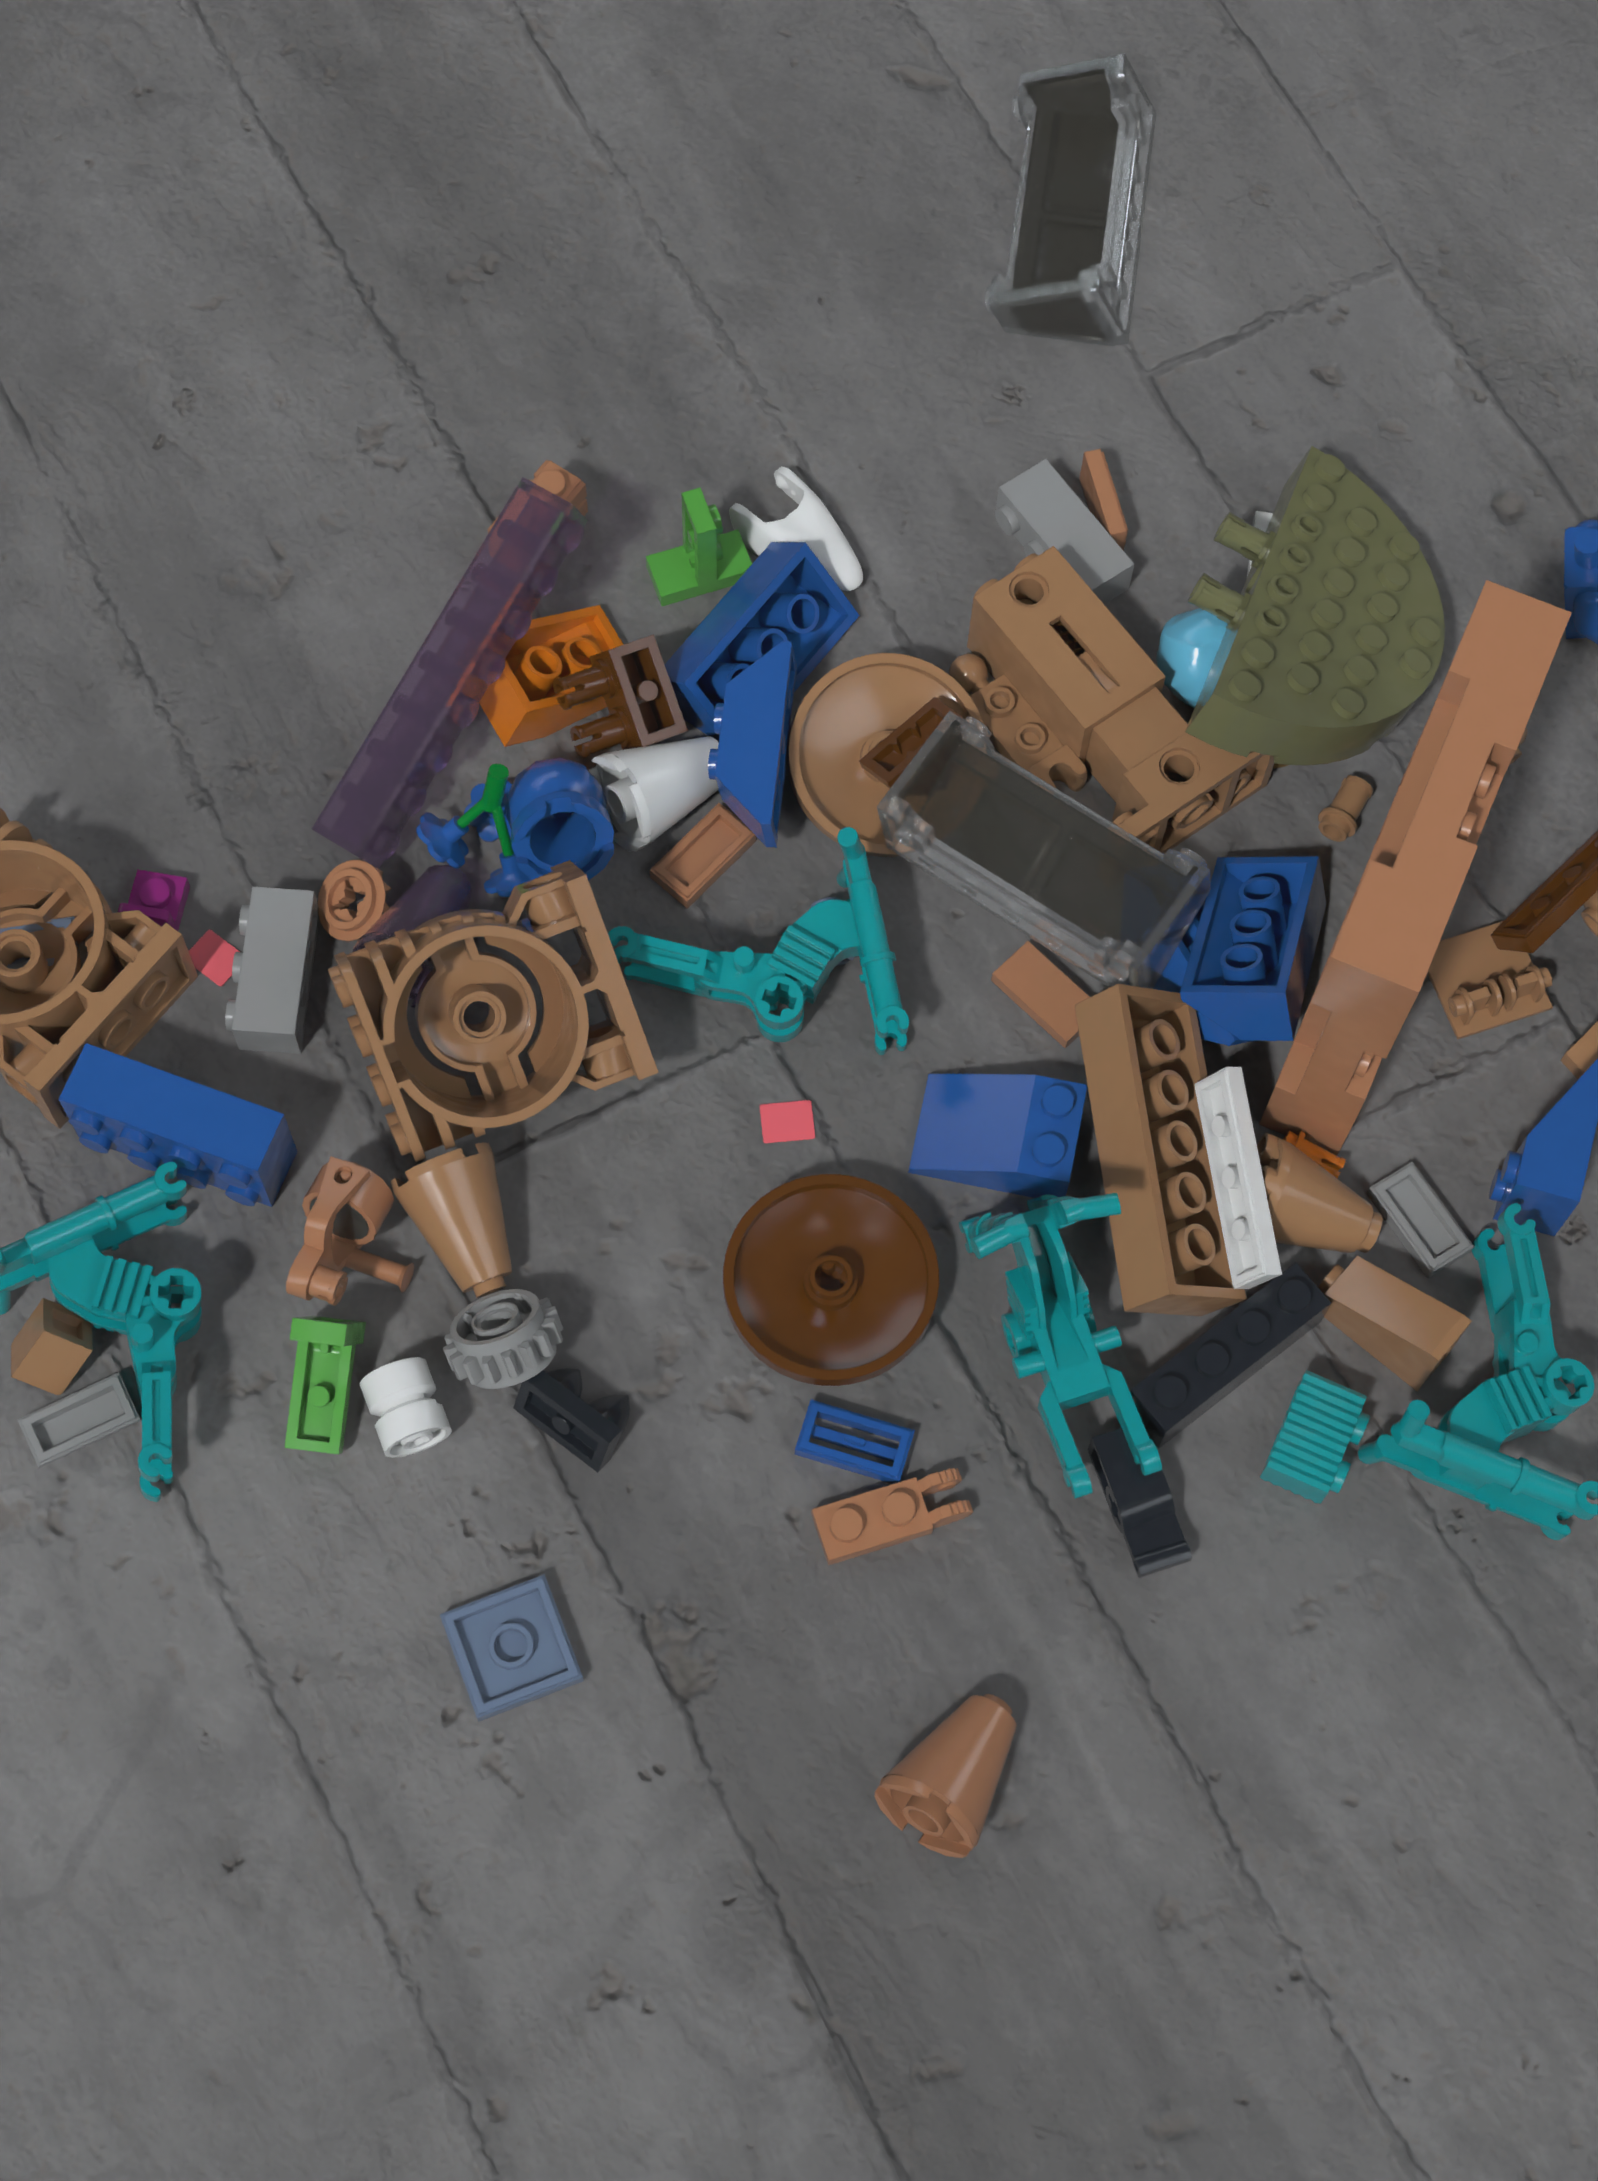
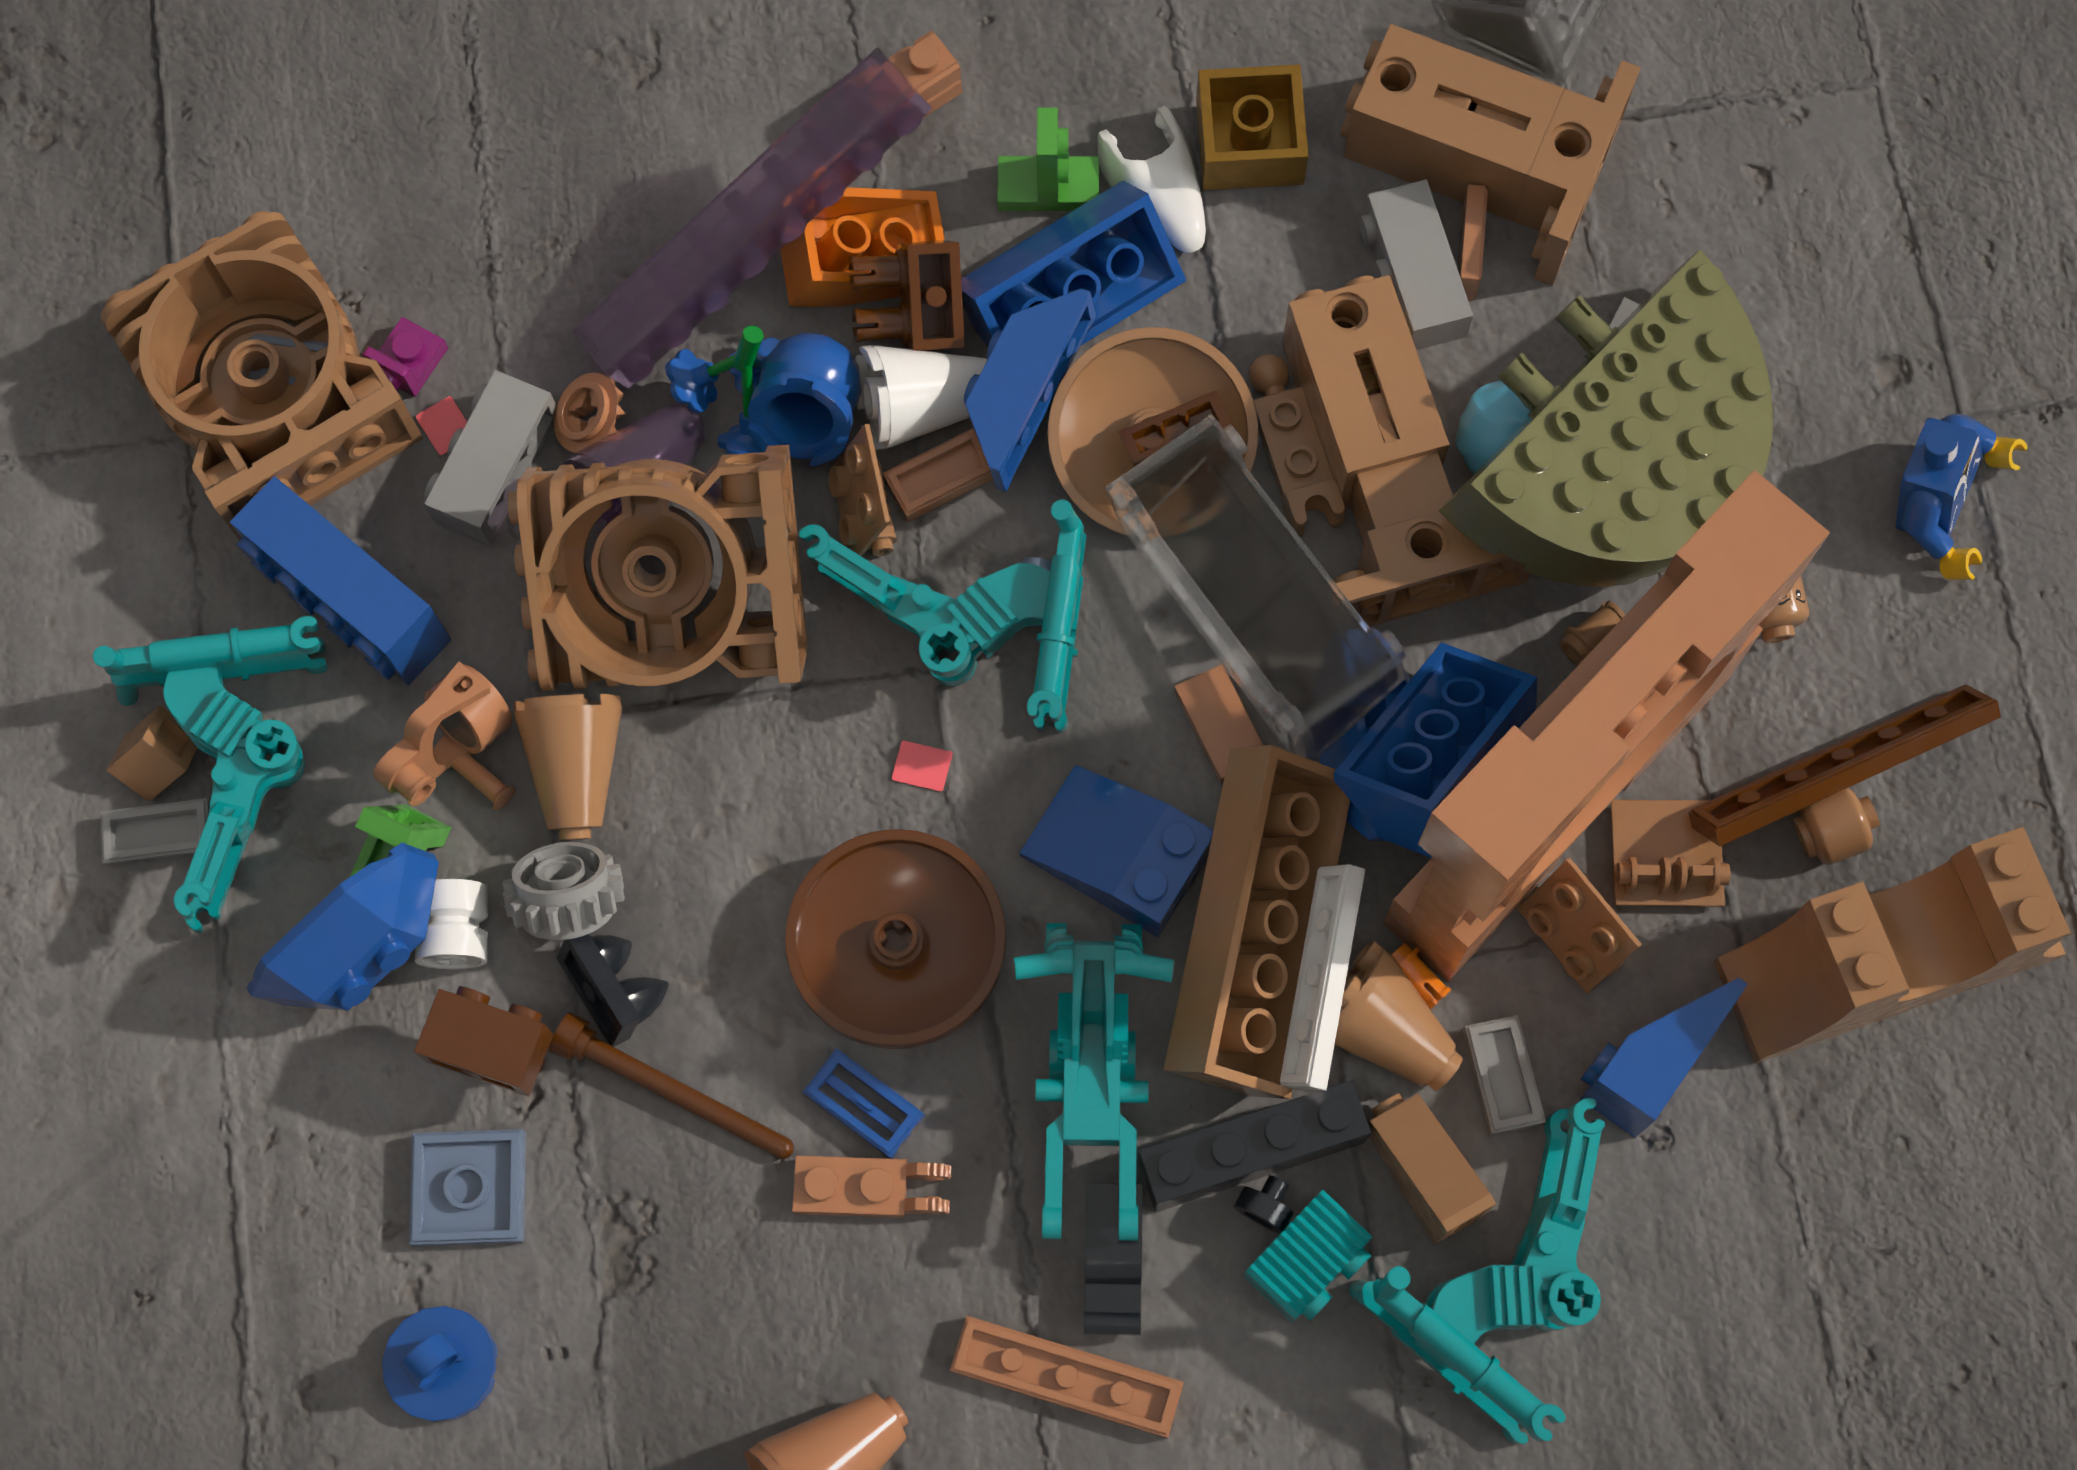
camera: 25 degrees right, 5 degrees up
(321, 1448) = (352, 935): none -> blue wedge
(487, 1496) = (485, 1040): none -> reddish brown brick
(548, 1819) = (439, 1364): none -> blue tile
(567, 1475) = (576, 1040): none -> reddish brown piece
(643, 889) = (861, 498): none -> medium nougat hinge
(870, 460) = (1251, 127): none -> pearl gold brick
(1067, 395) = (1480, 123): none -> medium nougat brick
(1137, 1622) = (1067, 1377): none -> nougat tile
(1258, 1405) = (1265, 1205): none -> black tile
(1440, 1063) = (1579, 926): none -> medium nougat hinge

